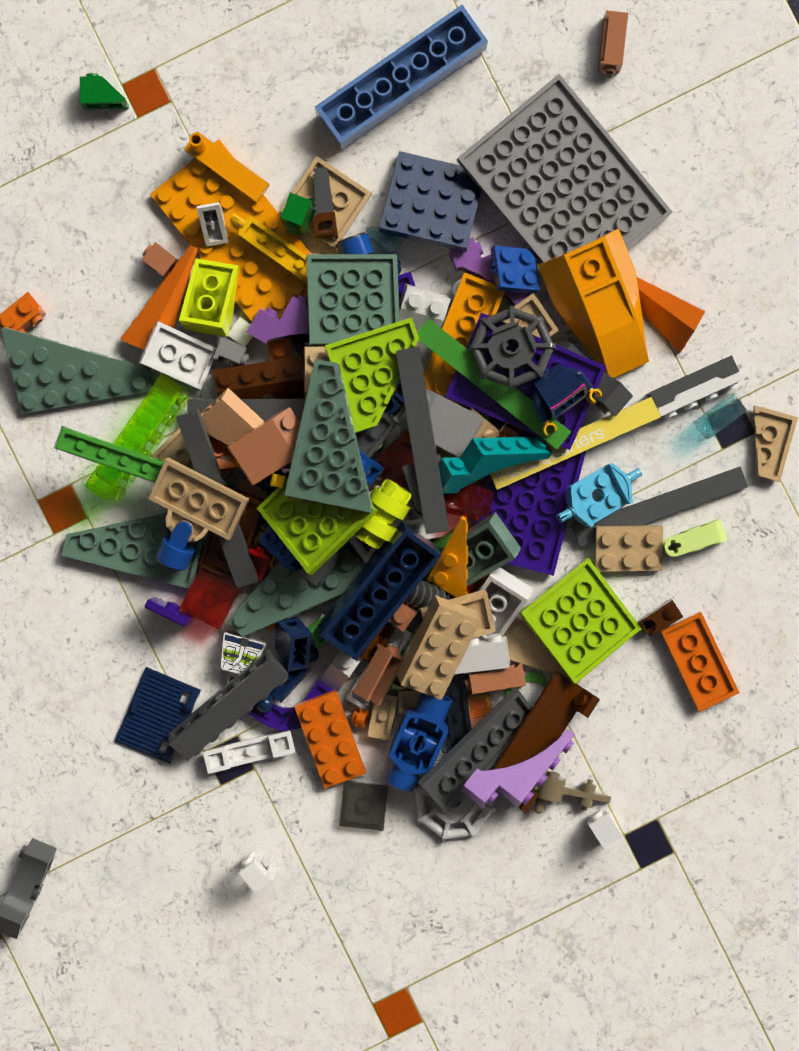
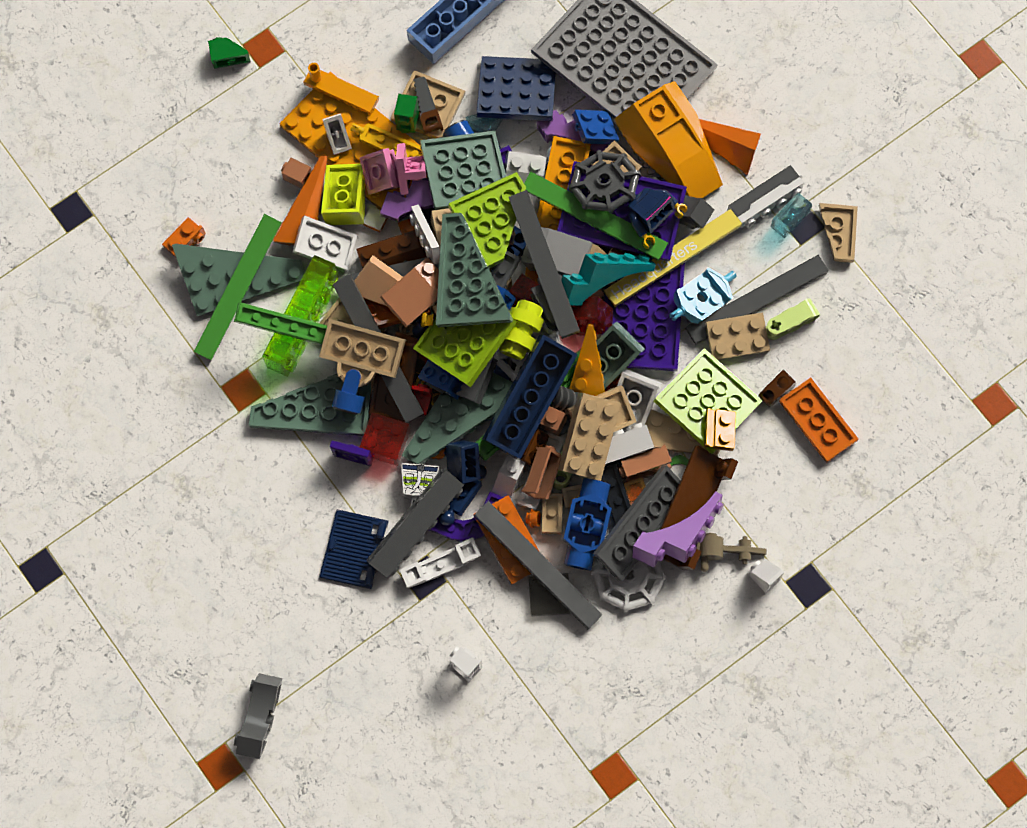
camera: 10 degrees left, 15 degrees down
(71, 390) = (237, 287): none -> bright green tile
(231, 353) = (368, 234): light grey brick -> none
(256, 281) = (380, 171): none -> bright pink bracket
(288, 286) = (408, 168): none -> bright pink bracket
(293, 381) = (425, 234): none -> white plate
(355, 775) = (537, 565): none -> dark grey tile
(586, 660) = (719, 429): none -> plate

